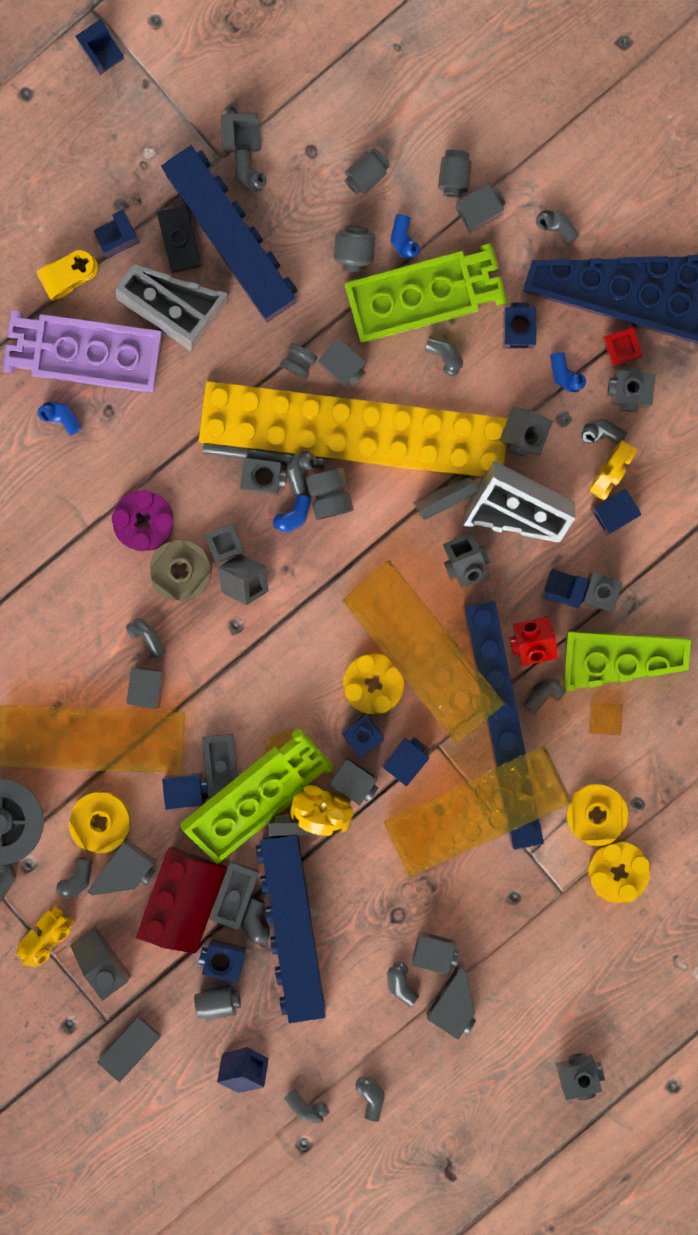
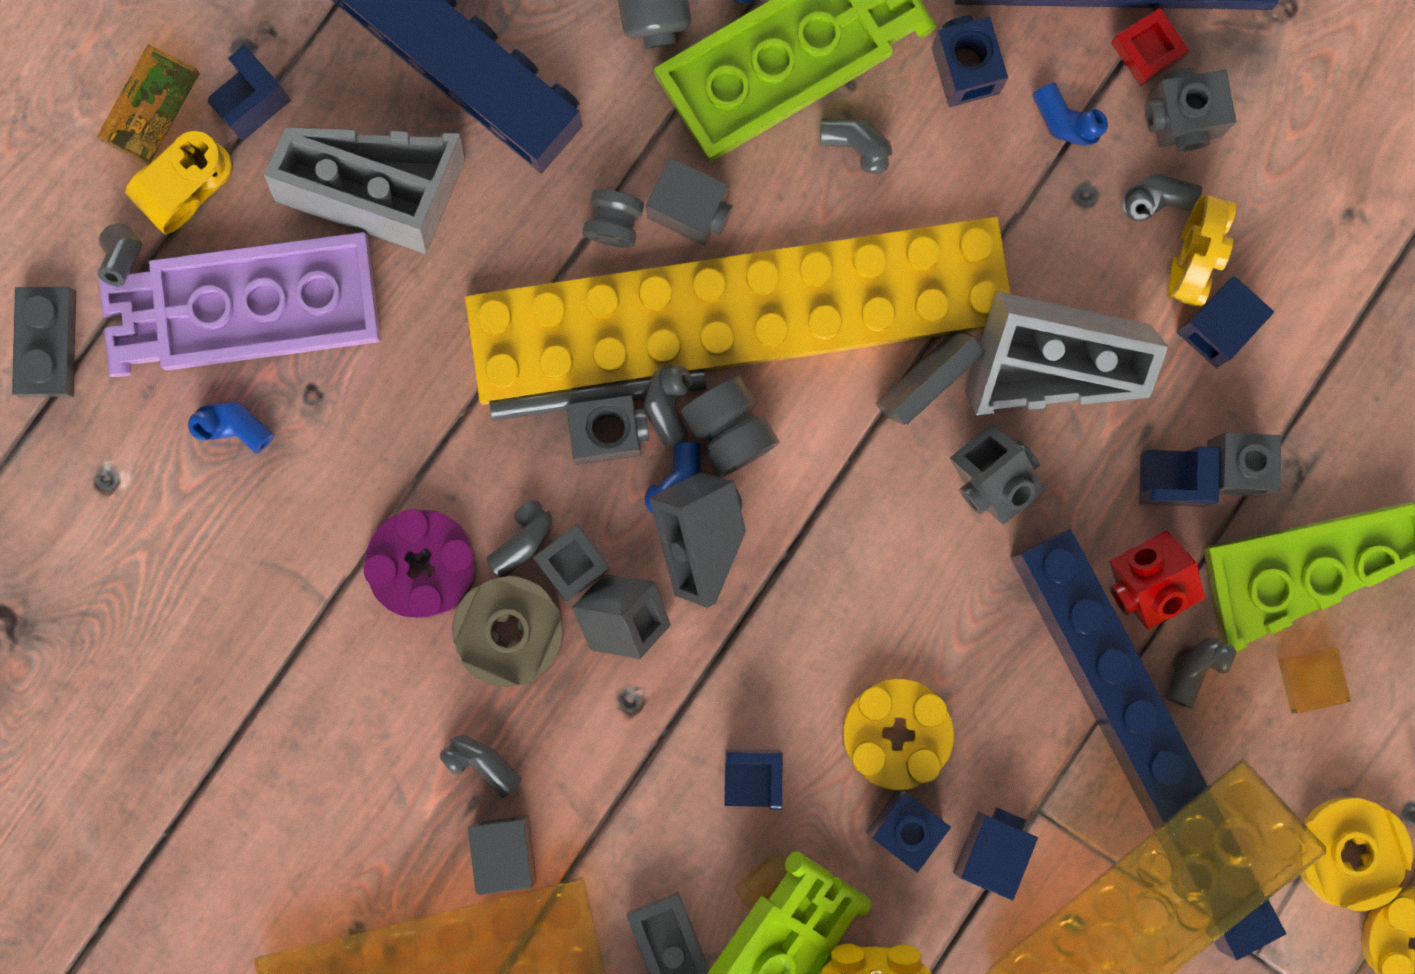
camera: 15 degrees left, 5 degrees down
(26, 304) = (121, 252): none -> dark grey arm
(60, 224) = (148, 104): none -> clear yellow tile
(179, 239) = (355, 74): black plate -> none
(201, 526) = (524, 543): none -> dark grey arm
(289, 685) = (753, 778): none -> dark blue panel
(296, 547) = (699, 534): none -> dark grey slope
(354, 782) = (916, 917): dark grey brick -> none
(423, 652) = (974, 655): clear yellow plate -> none
(525, 431) = (1033, 228): dark grey brick -> none

